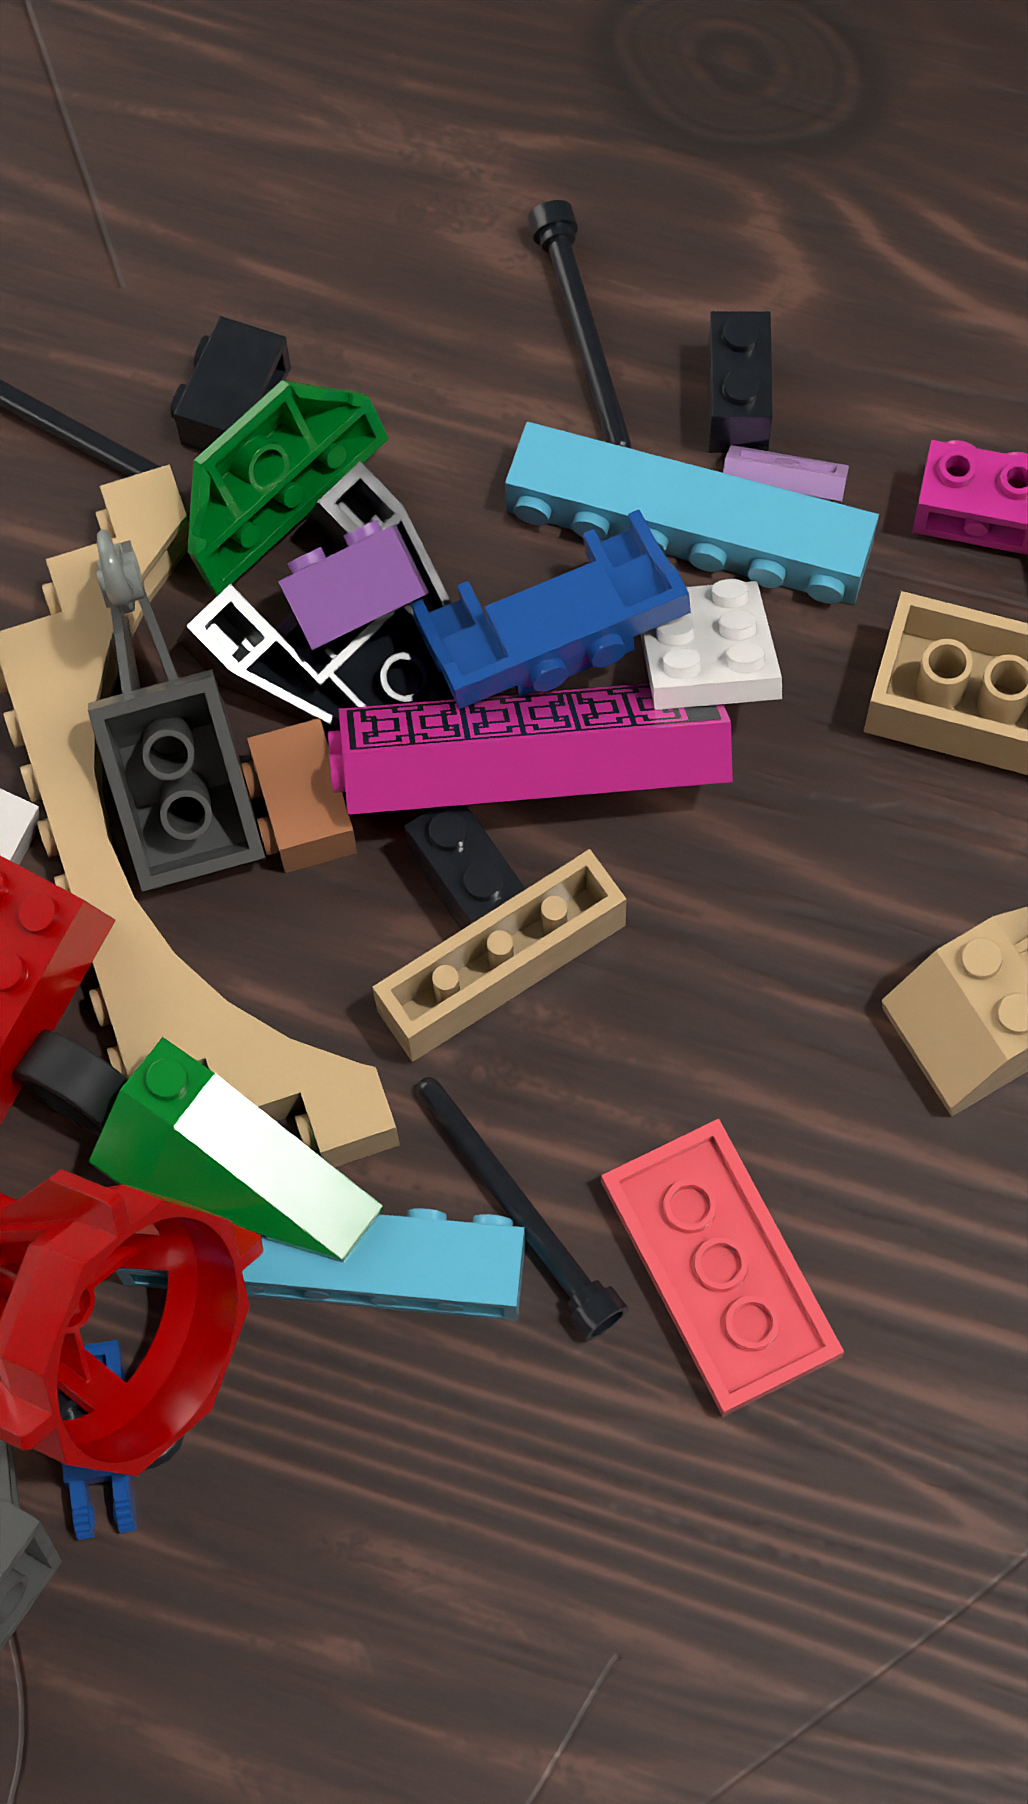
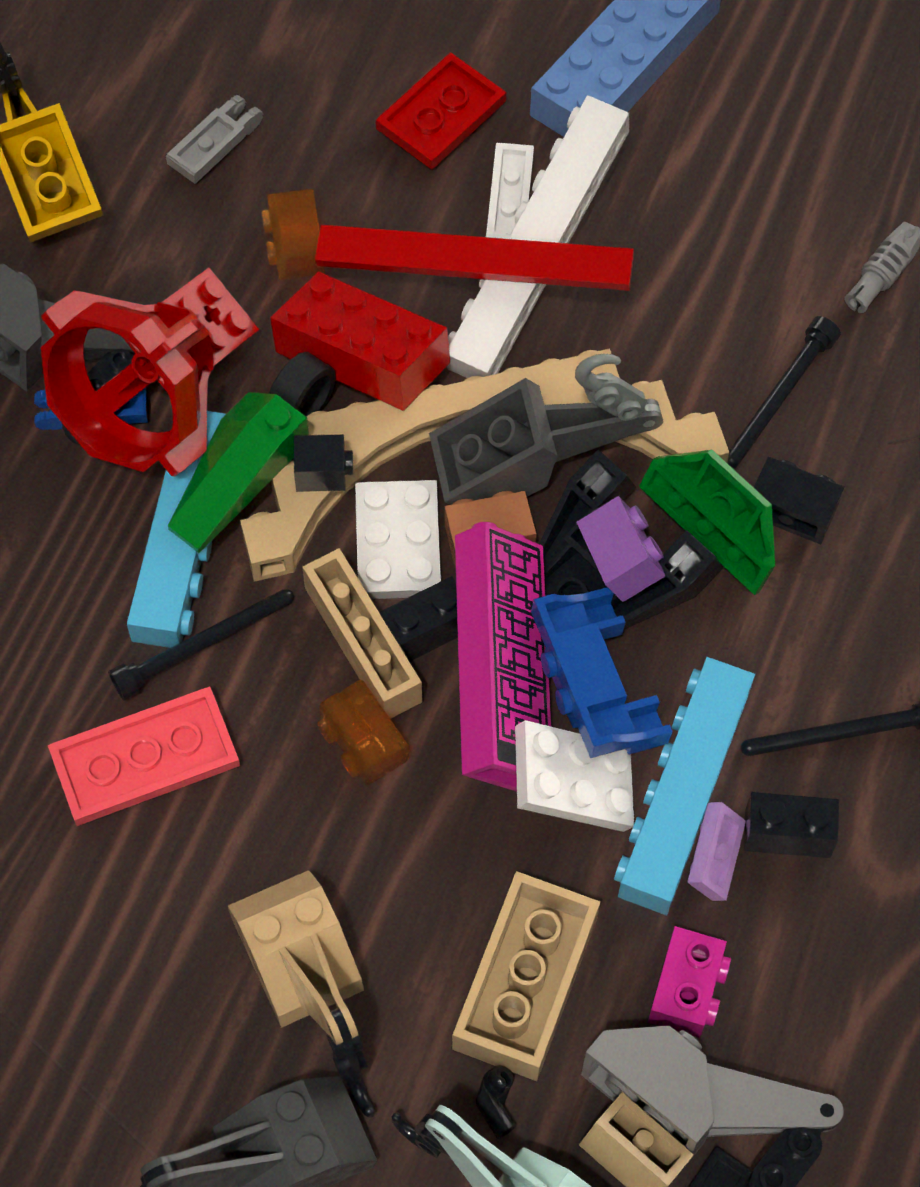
camera: 90 degrees right, 5 degrees down
(225, 1024) = (321, 463): none -> black brick
(315, 932) = (397, 537): none -> white plate
(655, 947) = (363, 733): none -> clear orange brick

